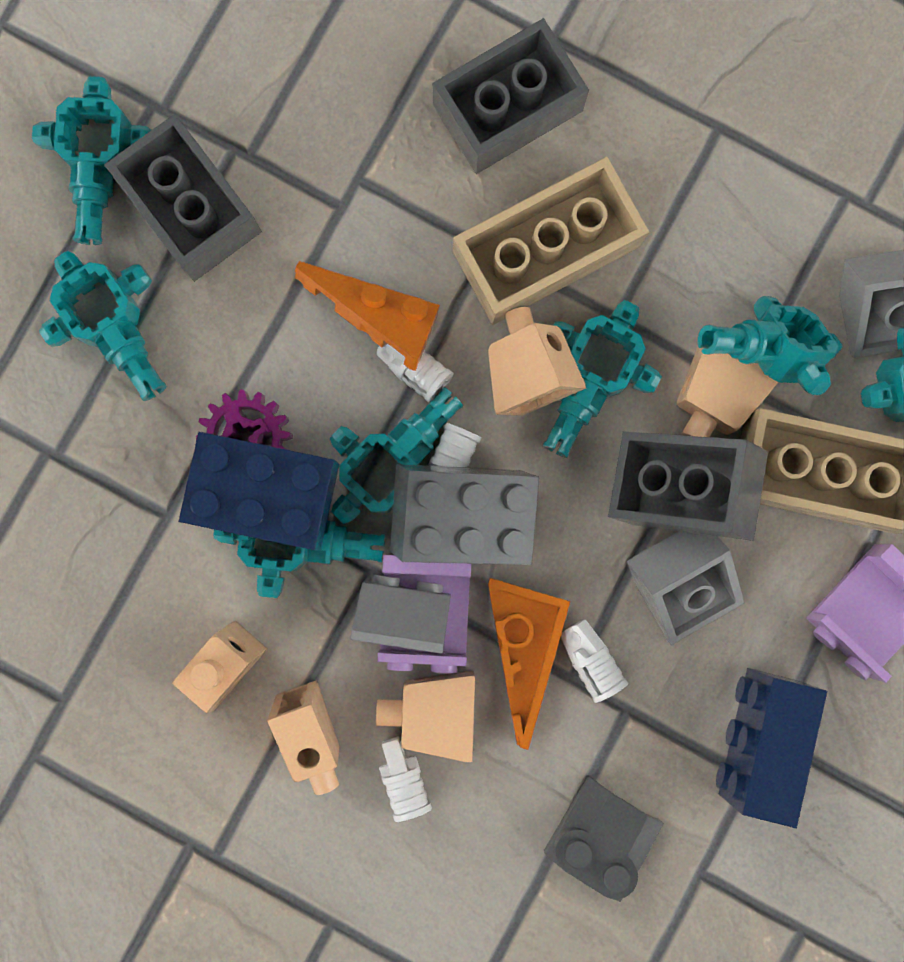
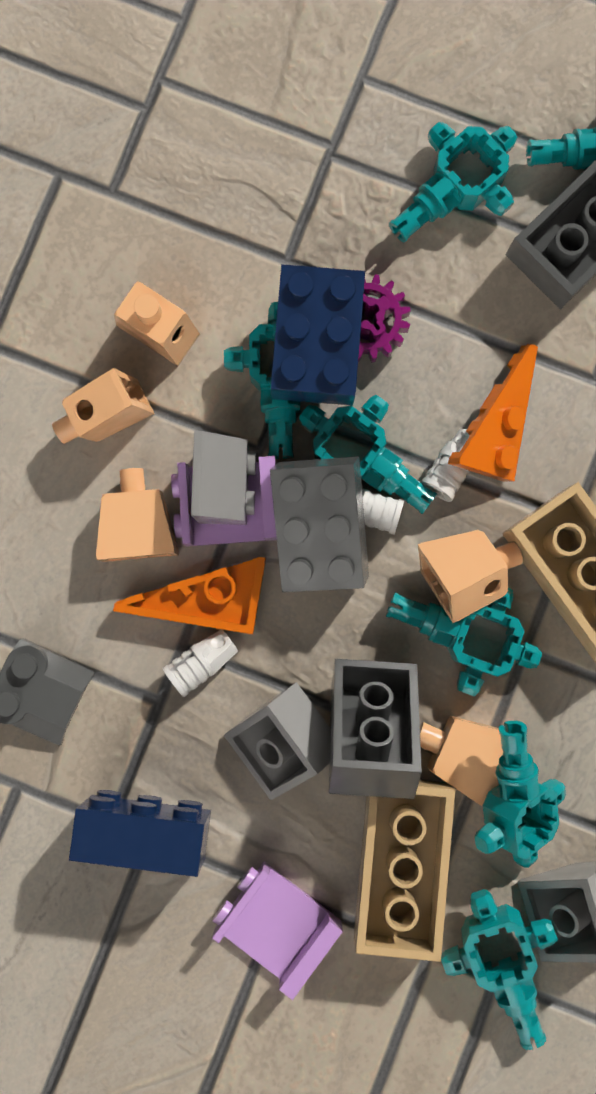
camera: 90 degrees right, 0 degrees up
(403, 782) = (71, 501): white hinge -> none

